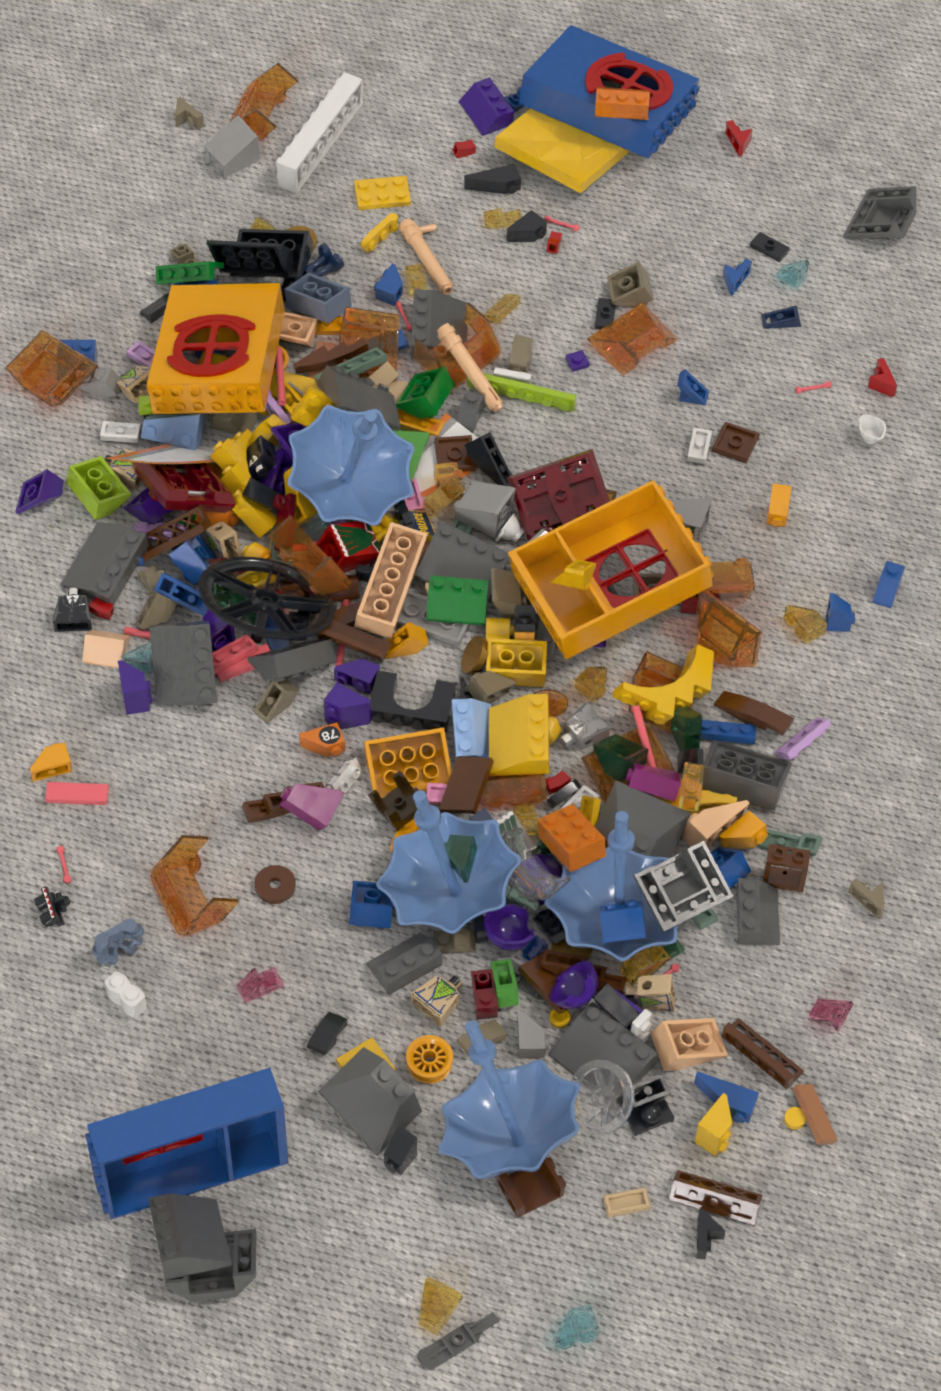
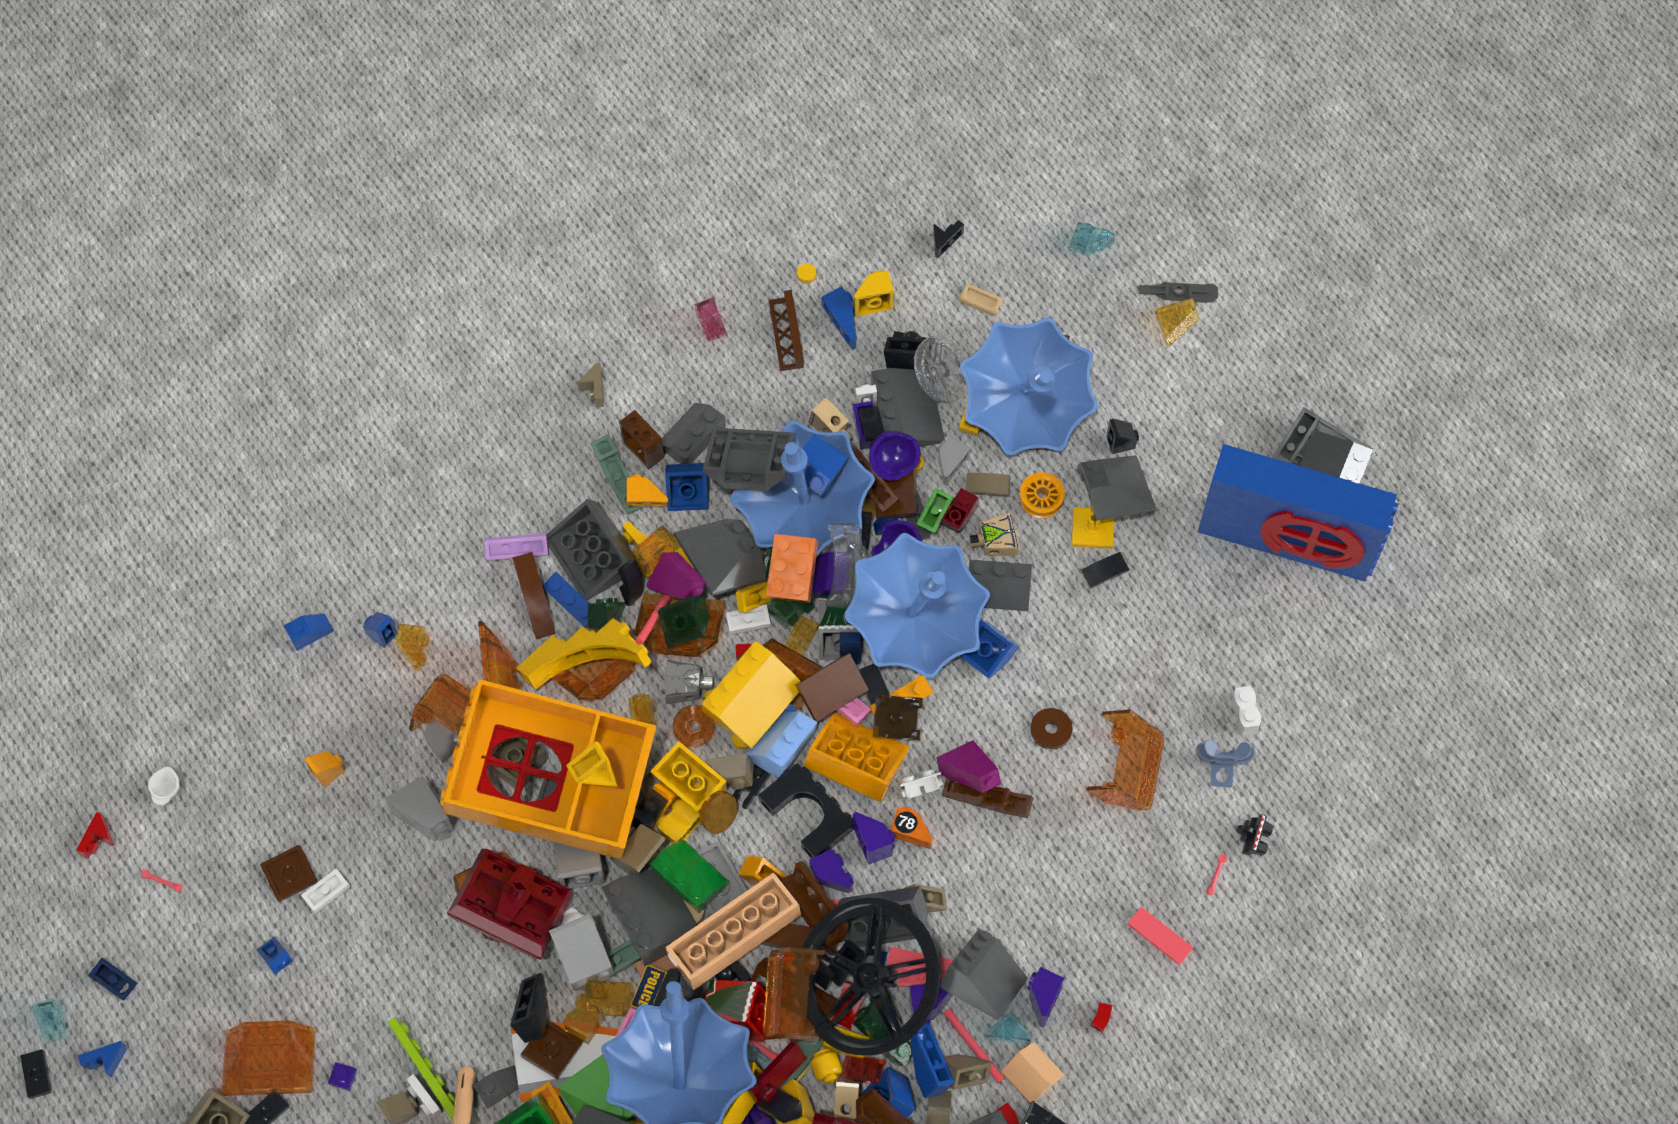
camera: 140 degrees left, 10 degrees up
(51, 762) = (1164, 978): light orange slope -> none
(81, 712) = (1102, 1017): none -> red piece
(258, 985) = (1129, 650): clear pink slope -> none
(462, 854) = (901, 601): clear green slope -> none
(563, 793) = (751, 634): black beam -> none
(687, 1043) = (836, 372): light nougat slope -> none
(712, 822) = (654, 512): light nougat slope -> none
(715, 1197) = (919, 256): reddish brown fence -> none
(814, 1114) = (791, 263): nougat tile -> none

